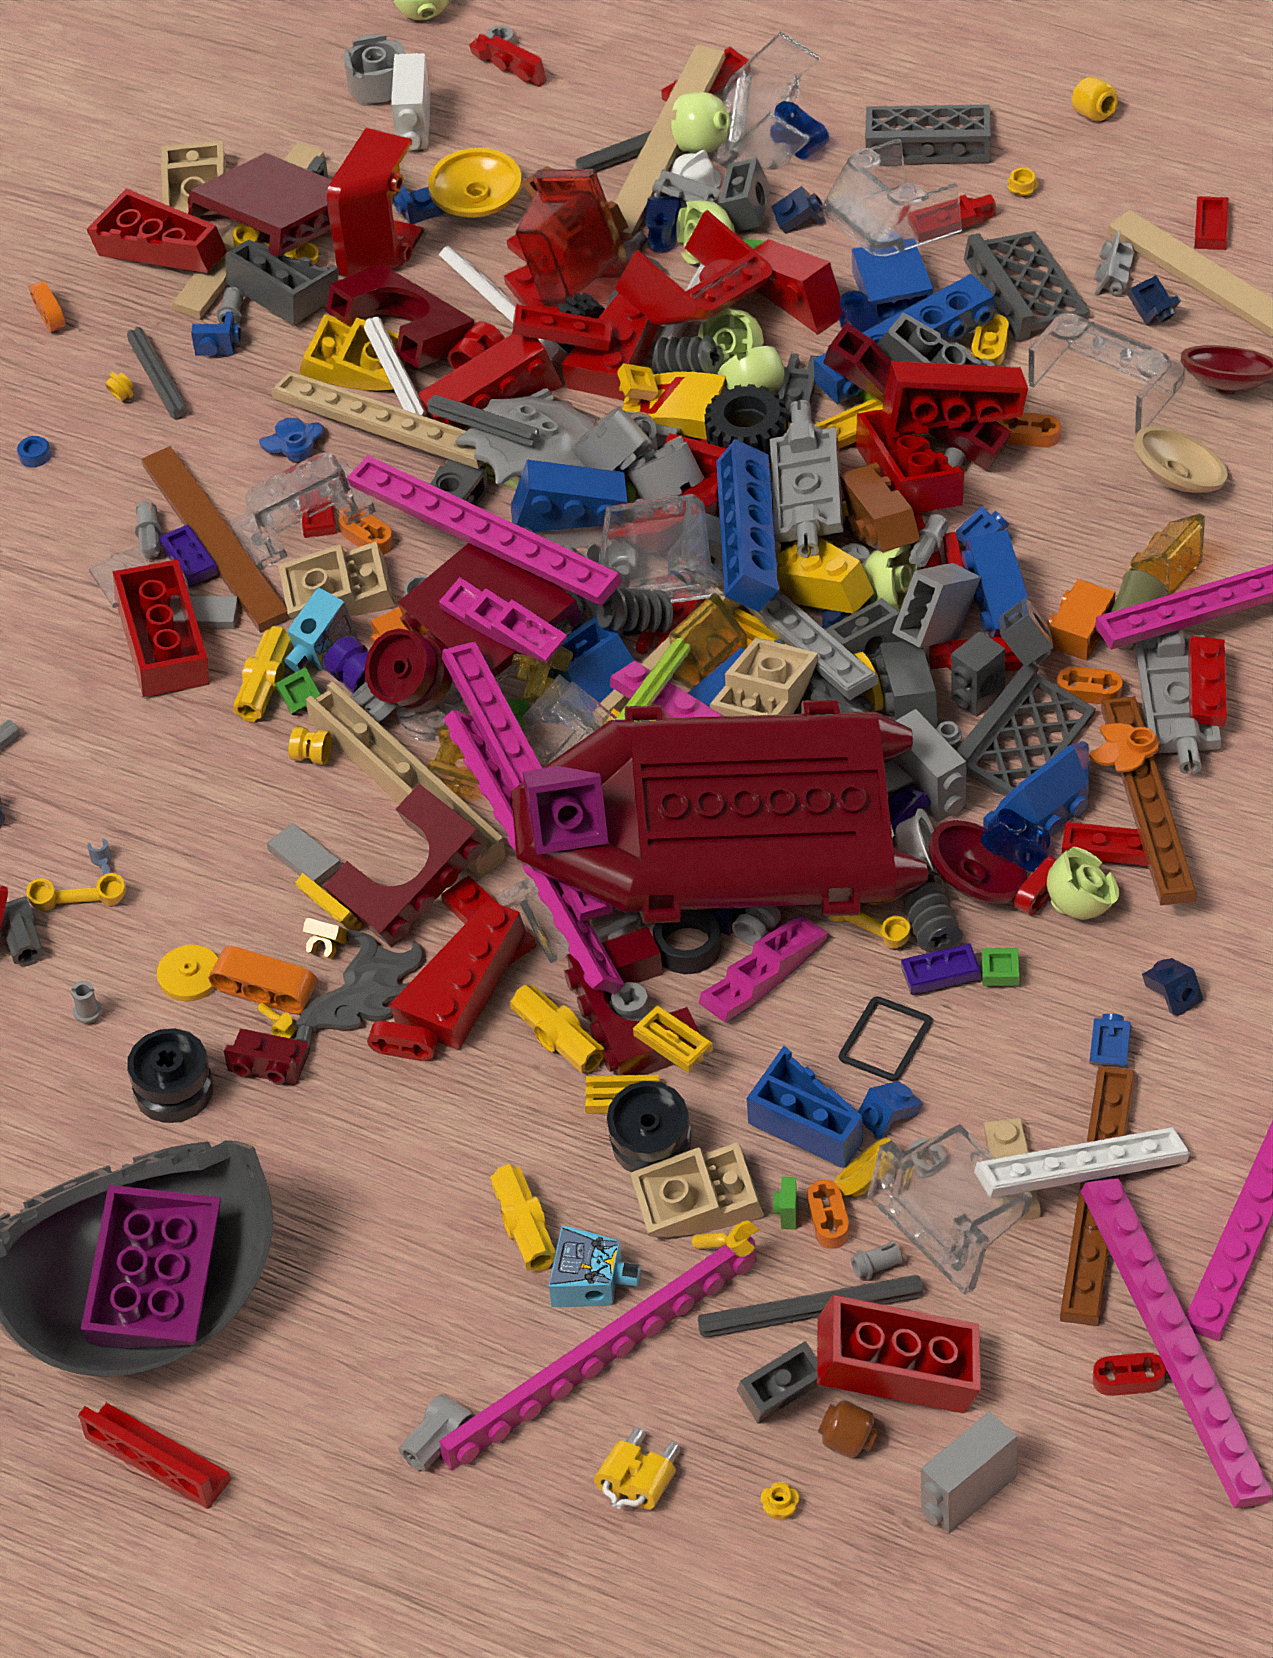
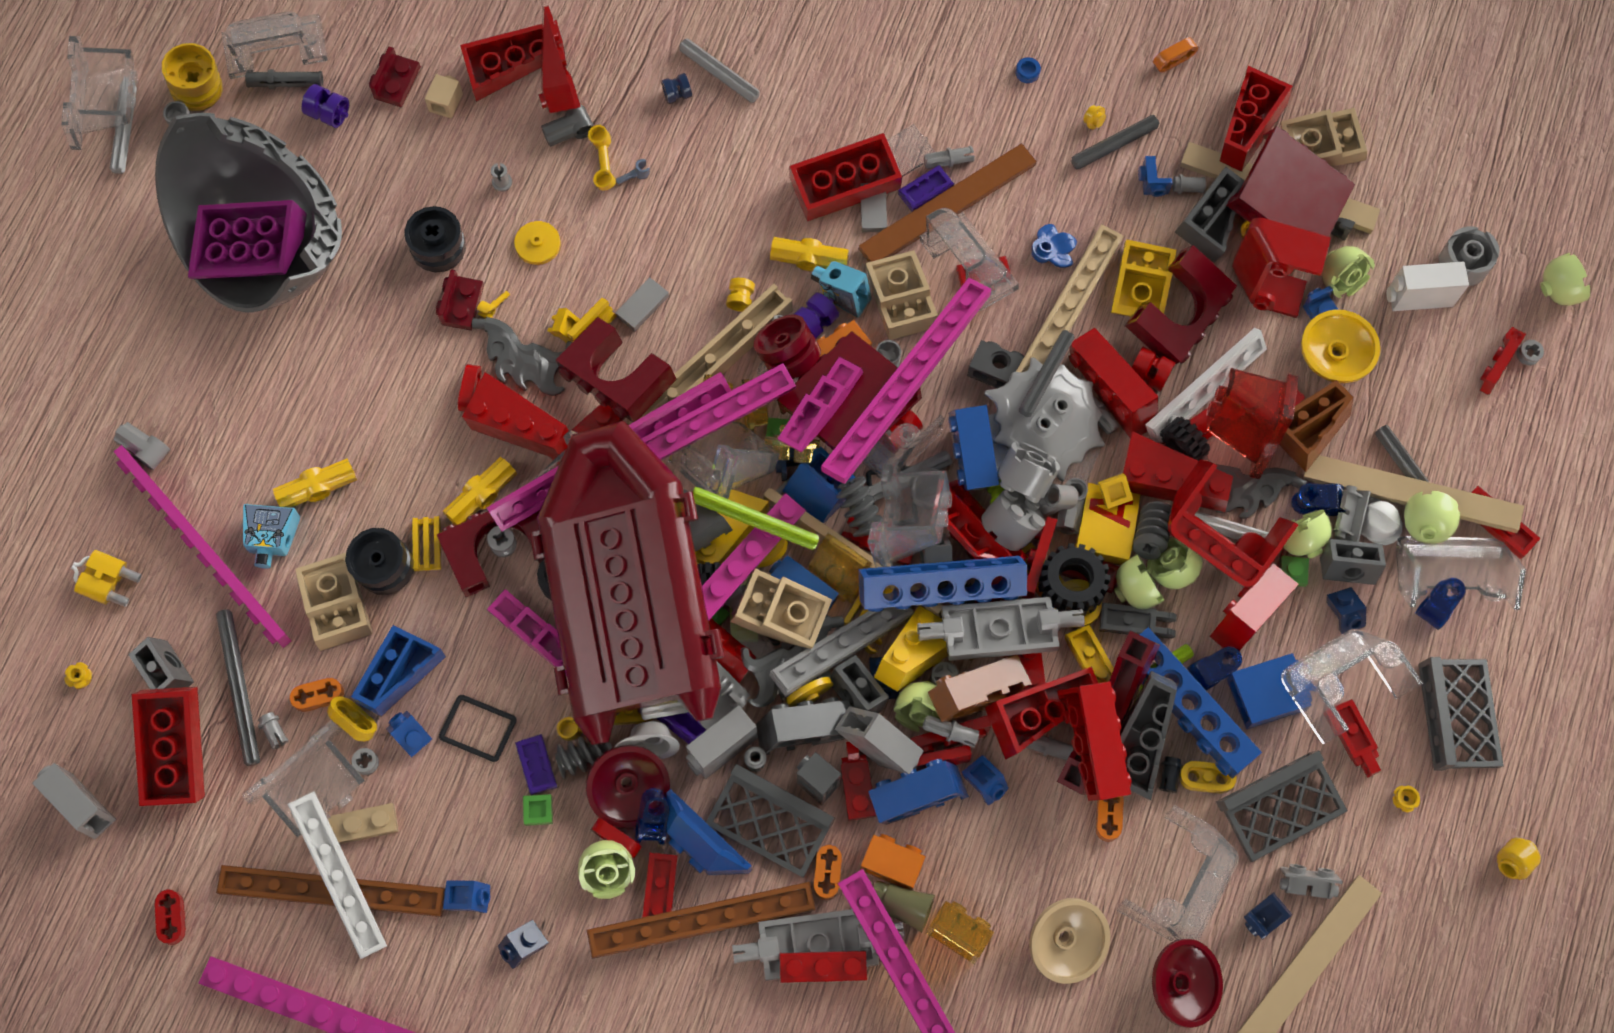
camera: 80 degrees right, 20 degrees up
(154, 1454) = (136, 272): red fence -> none
(263, 979) = (522, 289): orange beam -> none
(296, 689) = (792, 280): bright green plate -> none
(393, 366) = (1124, 307): white axle -> none
(562, 327) = (1153, 422): red plate -> none
(565, 808) = (587, 451): magenta slope -> none
(668, 1043) = (445, 593): yellow tile -> none
(735, 1241) = (274, 627): yellow piece -> none
(786, 1202) = (321, 664): bright green plate -> none
(848, 1429) = (121, 718): dark orange head -> none
(1026, 633) = (850, 812): dark grey brick -> none
(1125, 746) = (746, 895): orange plate -> none
(1177, 1344) = (188, 949): dark pink plate -> none
(1211, 223) = (1378, 968): red tile -> none

